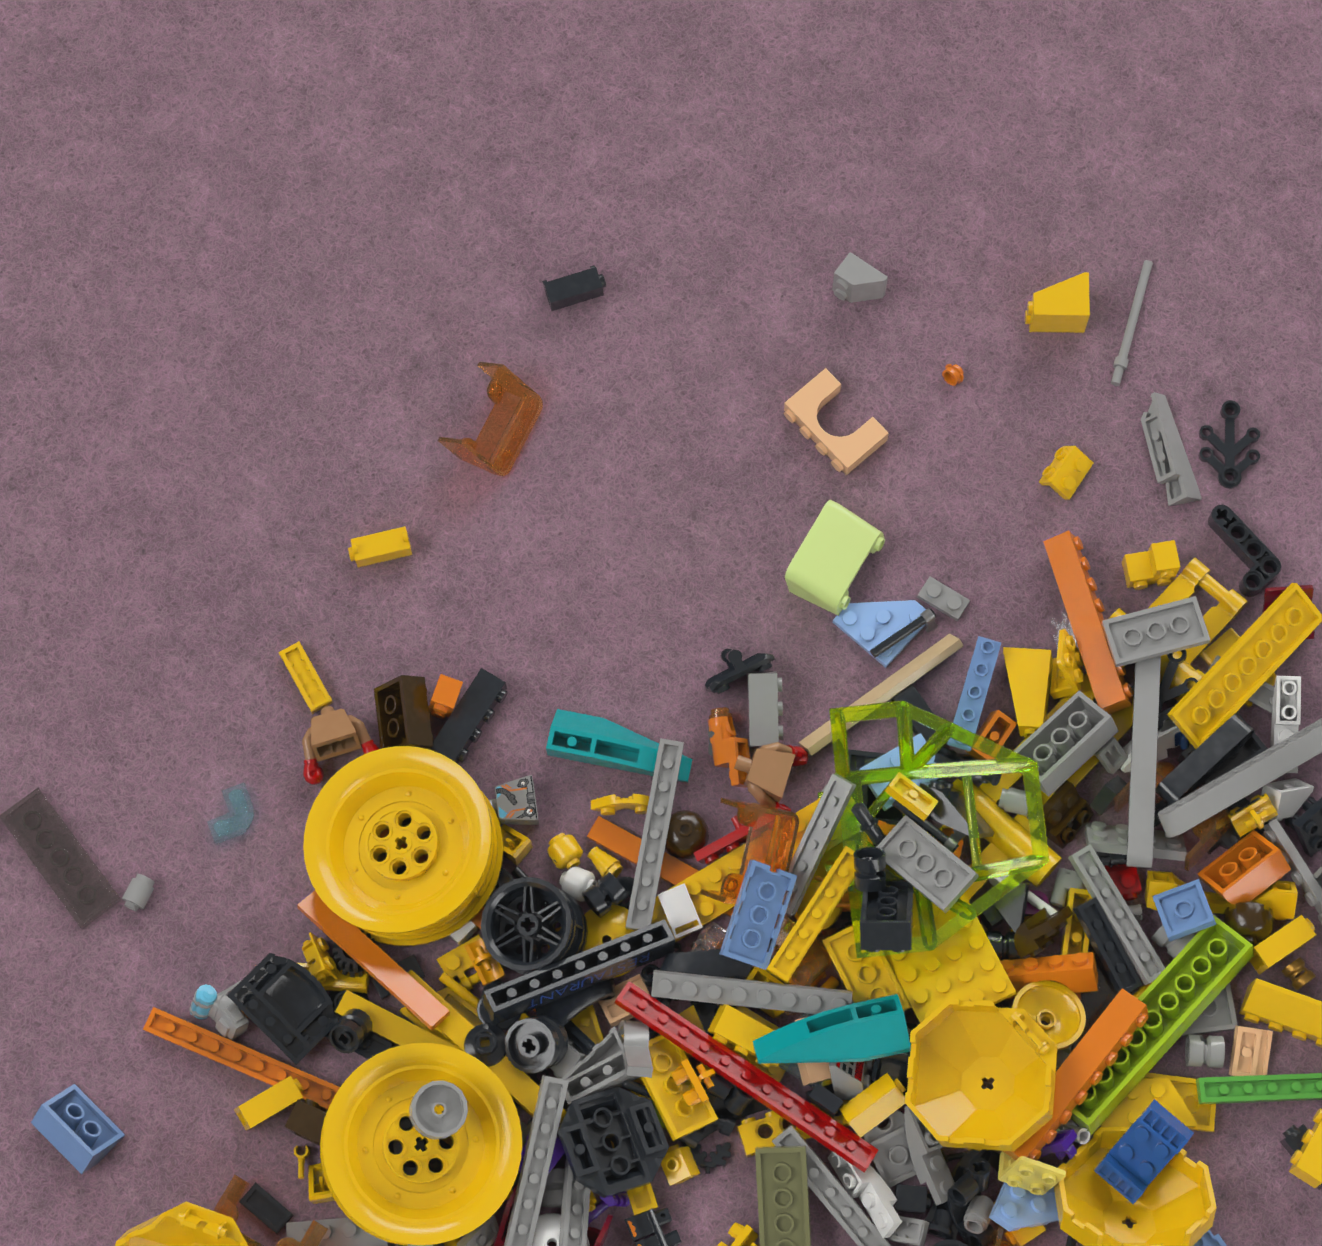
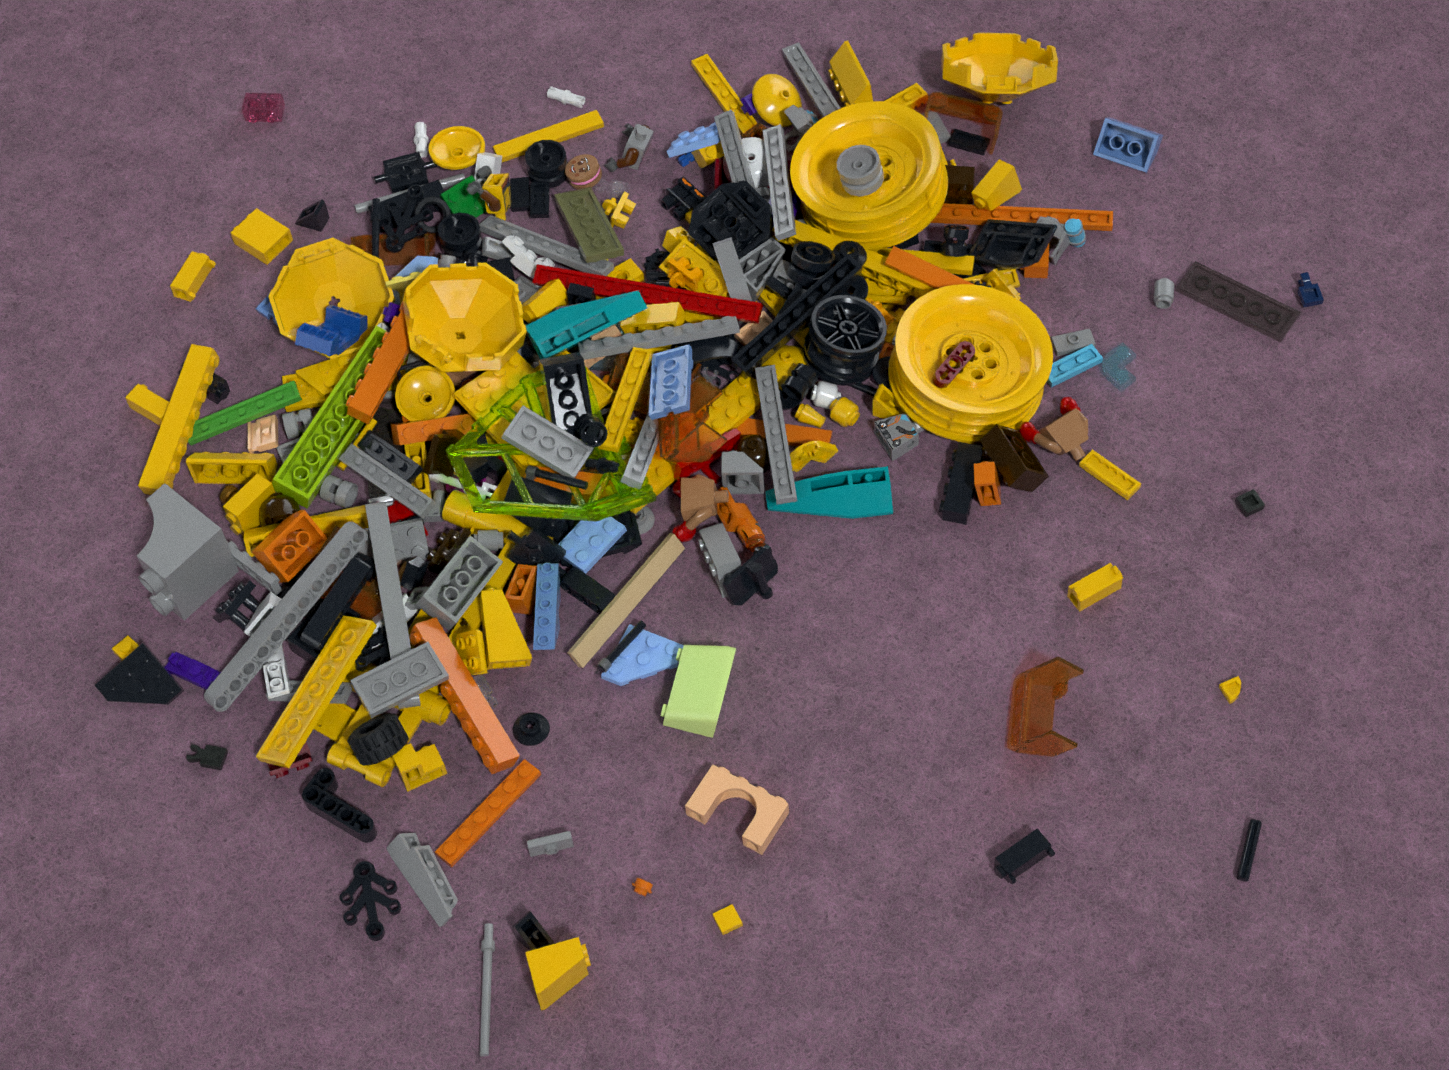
camera: 165 degrees right, 15 degrees down
(175, 593) = (1250, 503): none -> pearl dark grey plate
(269, 865) = (1072, 342): none -> light grey plate
(277, 832) = (1074, 365): none -> medium azure plate
(294, 398) = (1231, 689): none -> yellow tile
(356, 233) = (1249, 850): none -> black axle
(445, 827) = (954, 356): none -> dark red beam
(679, 909) = (738, 393): white piece -> none
(707, 799) = (741, 474): none -> light grey slope
(858, 281) = (756, 935): light grey slope -> none
(879, 319) = (727, 919): none -> yellow tile
(911, 796) = (572, 486): yellow plate -> none
(943, 598) = (596, 693): light grey plate -> none
(1016, 591) = (531, 736): none -> black piece
(1034, 443) = (550, 844): none -> light grey plate
(1066, 471) = (515, 830): yellow bracket -> none
(1074, 356) = (531, 932): none -> black slope
(1089, 501) = (488, 813): none -> orange plate
(1184, 568) = (378, 739): none -> black tyre
(1184, 910) = (333, 495): medium blue plate -> none
(1252, 814) = (286, 581): yellow hips -> none

